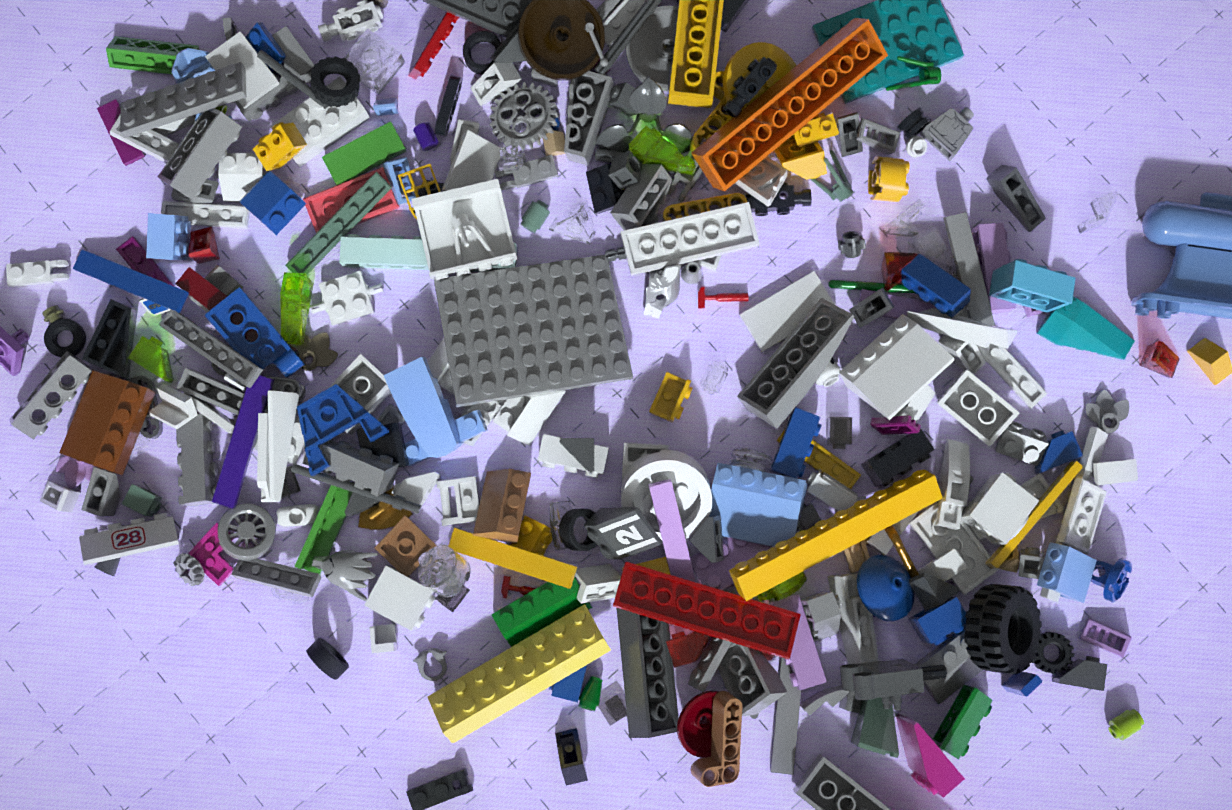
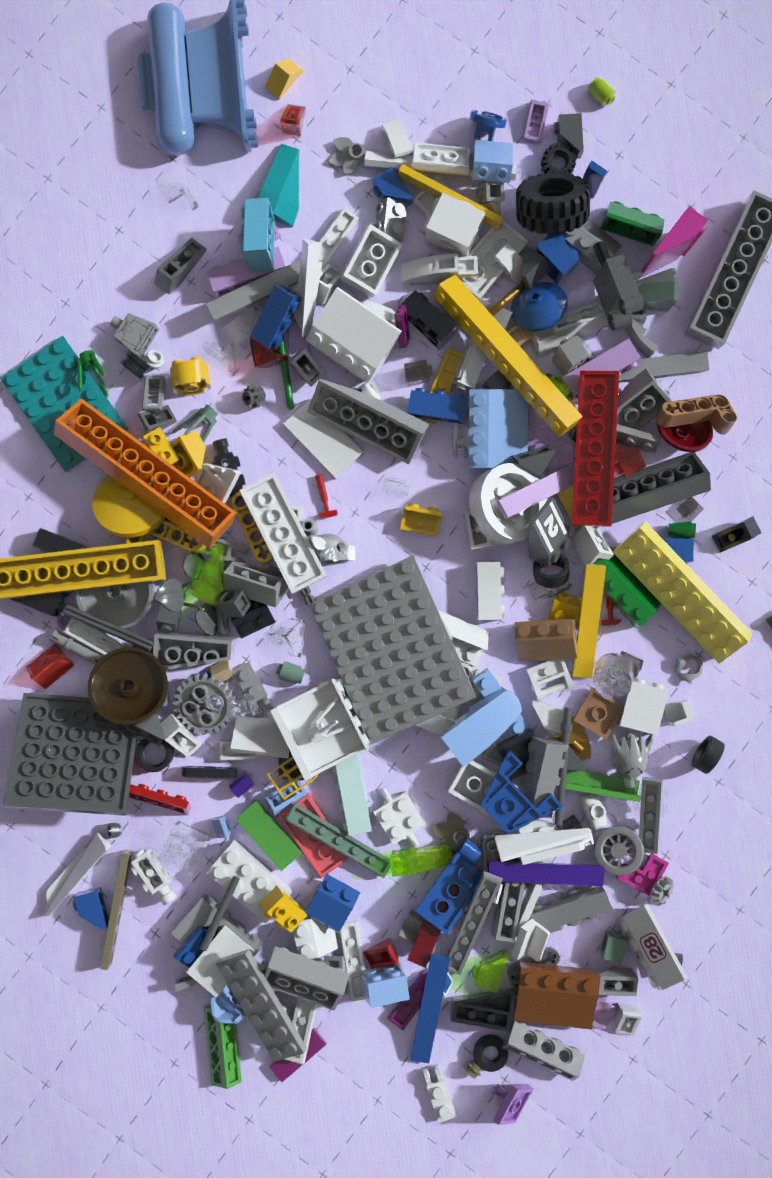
camera: 105 degrees left, 5 degrees up
(339, 66) = (229, 875): black tyre -> none
(582, 450) = (486, 583): dark grey slope -> none
(589, 28) = (115, 663): light grey hinge -> none
(748, 86) = (134, 509): black brick -> none

